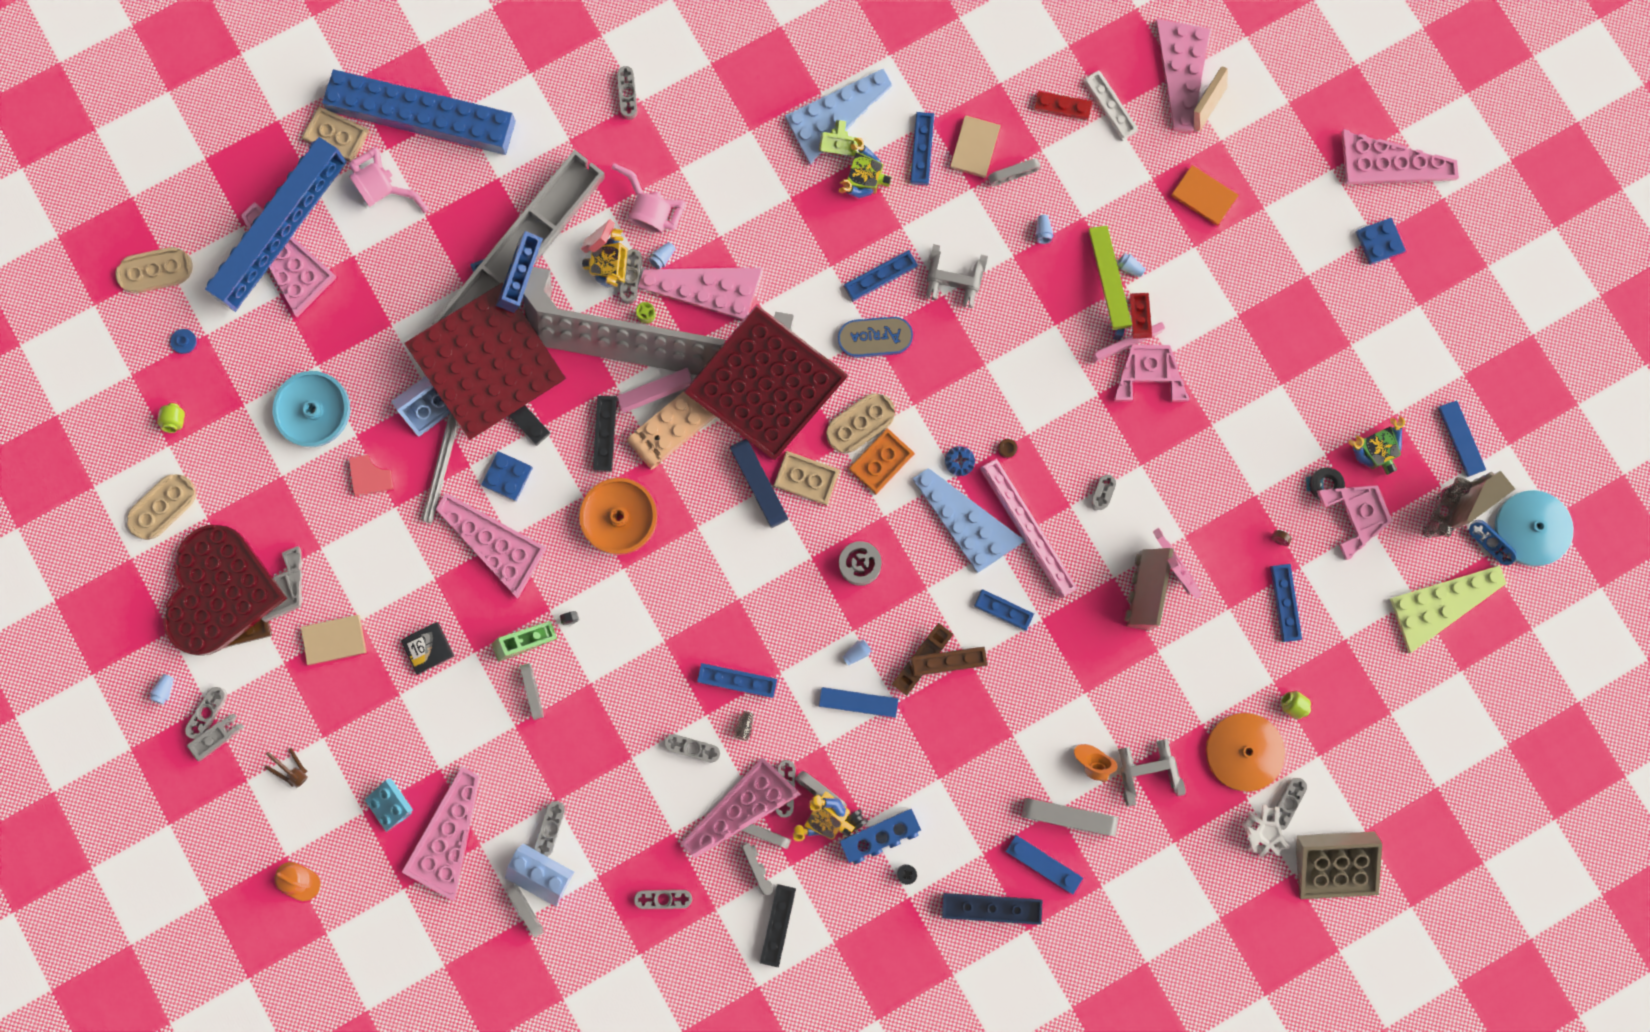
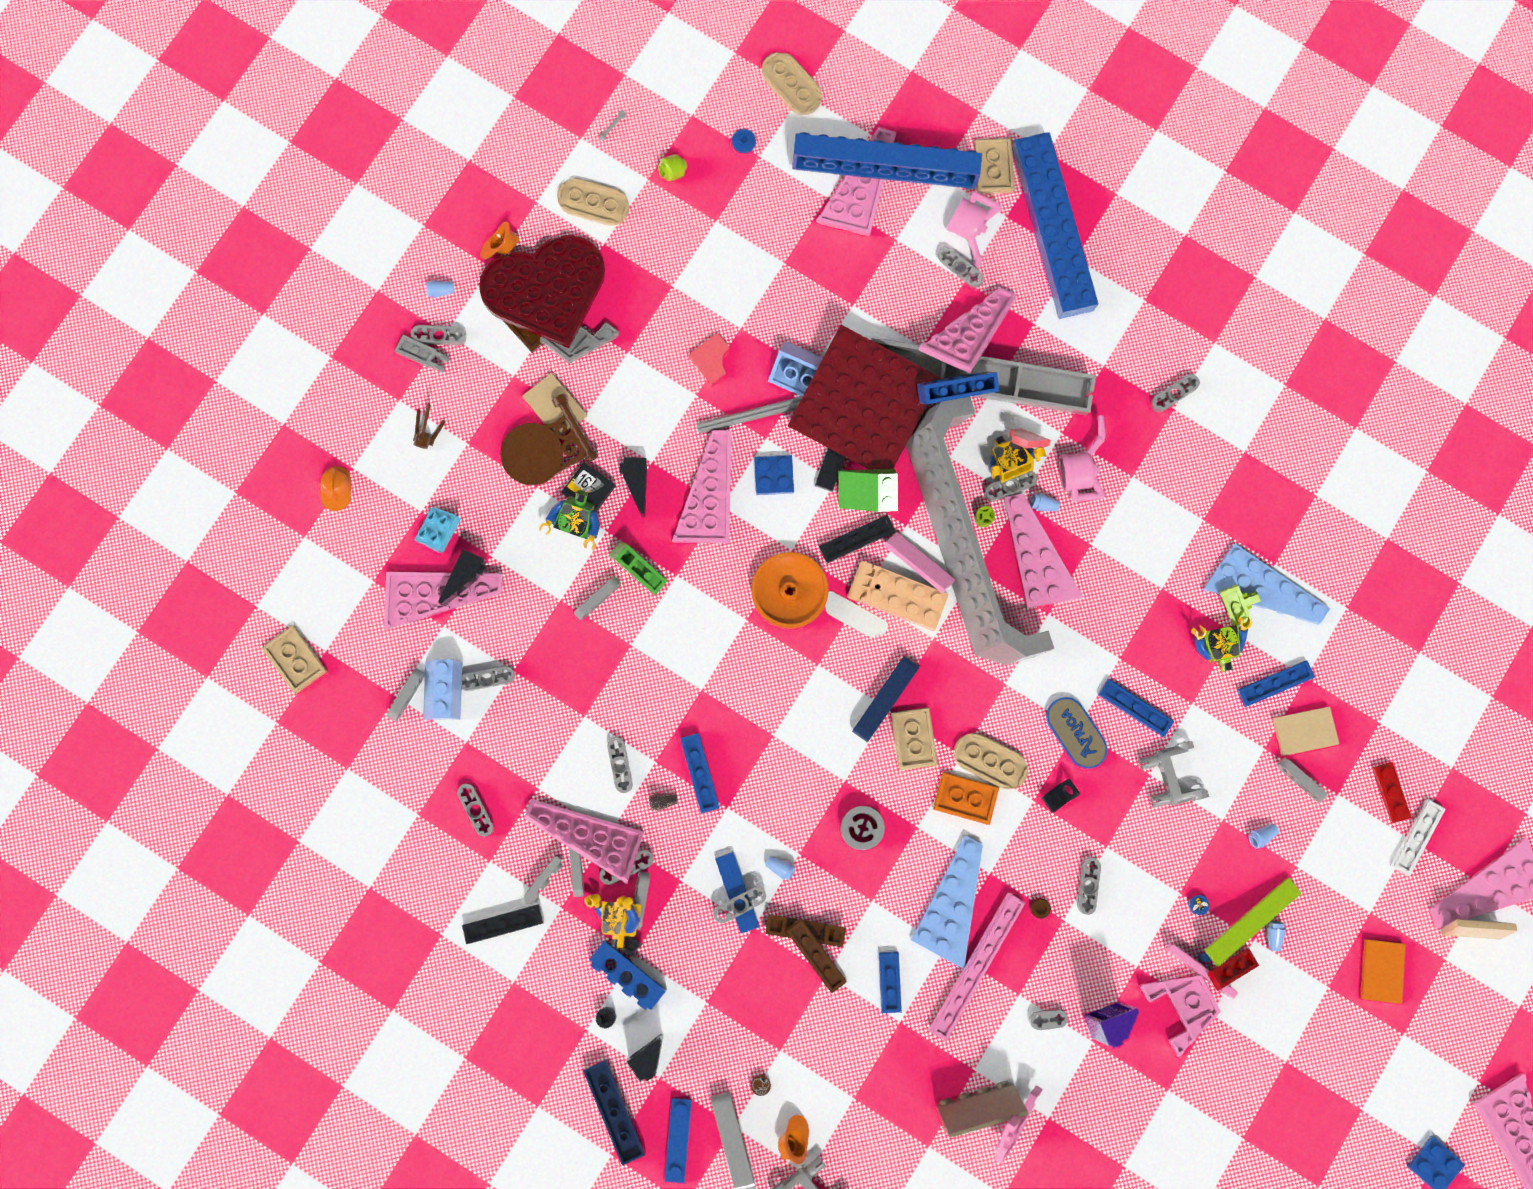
camera: 60 degrees right, 0 degrees up
(104, 466) = (621, 115): none -> light grey hinge
(150, 611) = (500, 242): none -> orange piece
(295, 406) = (742, 263): medium azure dish -> none
(367, 680) = (535, 453): none -> reddish brown piece
(422, 203) = (967, 279): none -> light grey beam
(436, 999) = (294, 659): none -> tan tile
(441, 601) = (635, 476): none -> black slope
(444, 800) = (465, 573): none -> black slope
(447, 673) = (575, 518): none -> torso
(476, 235) = (970, 334): none -> bright pink wing
(566, 399) = (868, 489): none -> bright green slope
(569, 618) = (677, 596): tile -> none
(672, 471) = (855, 615): none -> white sticker
(765, 382) = (978, 656): dark red plate -> none
(877, 699) = (728, 916): none -> light grey beam
(921, 381) = (1059, 796): none -> black bracket
(954, 467) = (996, 868): blue gear -> none
(961, 855) = (646, 1060): none -> black slope
(1024, 400) = (1093, 901): none -> light grey beam
(1034, 768) = (760, 1085): none -> reddish brown tile
(1073, 314) = (1198, 905): none -> tile
(1134, 439) = (1112, 1023): none -> dark purple slope

